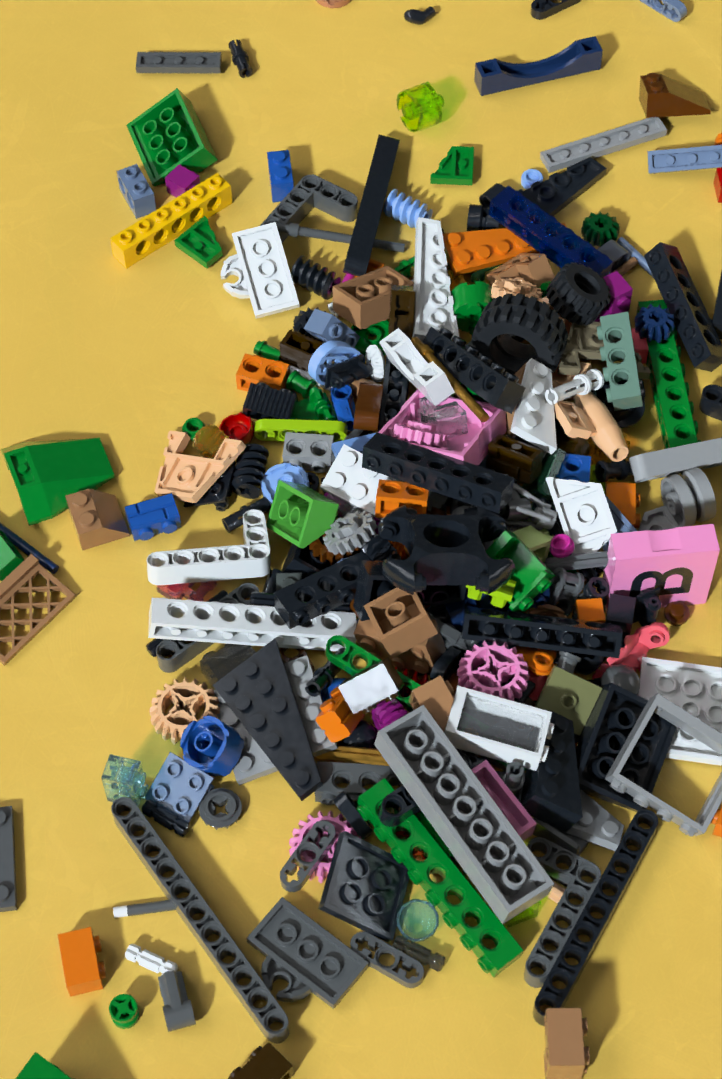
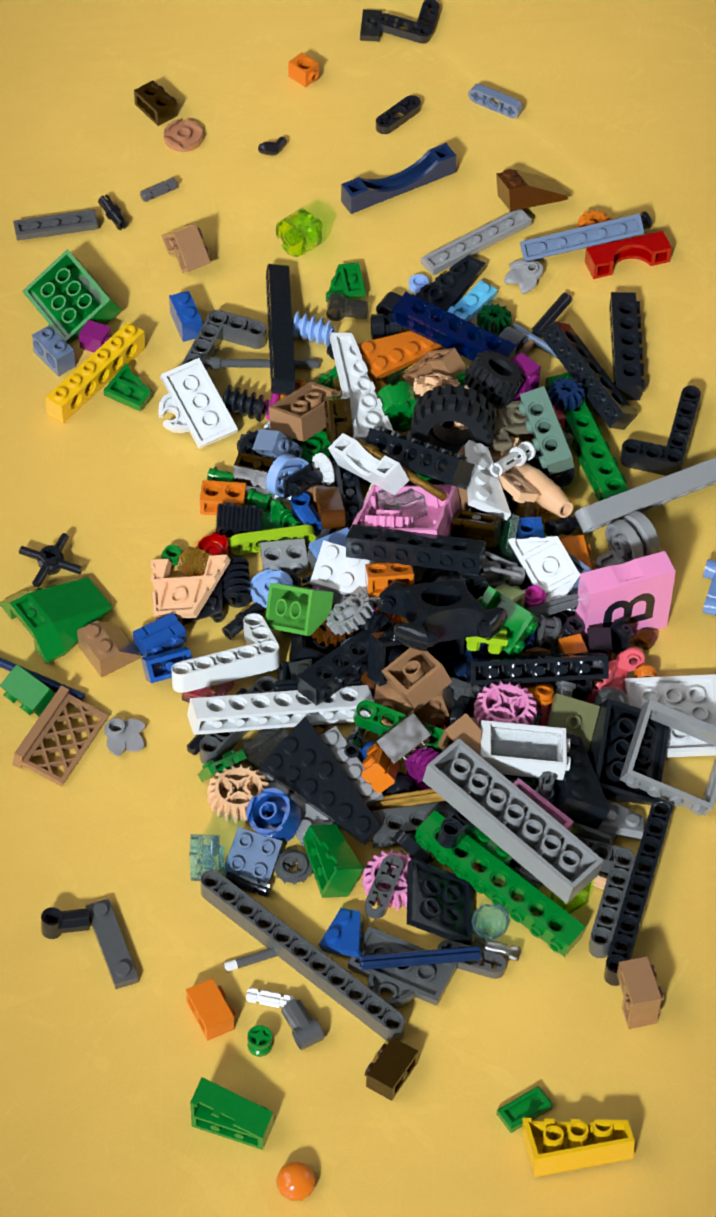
camera: 15 degrees left, 5 degrees down
(66, 412) = (50, 560): none -> black bar
(86, 624) = (126, 737): none -> light grey plate
(139, 547) = (158, 666): none -> blue brick
(185, 670) = (229, 759): none -> green wing
(253, 900) = (344, 934): none -> blue wing
(261, 810) = (331, 860): none -> green wedge
(292, 42) = (158, 189): none -> dark grey axle
(302, 105) = (188, 247): none -> medium nougat brick
(326, 949) = (421, 957): none -> dark blue axle
(443, 191) = (340, 307): none -> clear smoke piece
(590, 202) = (473, 301): none -> medium azure plate
(643, 187) = (522, 274): none -> light grey plate
(664, 233) = (551, 314): none -> black axle
(667, 652) = (645, 670): none -> orange plate

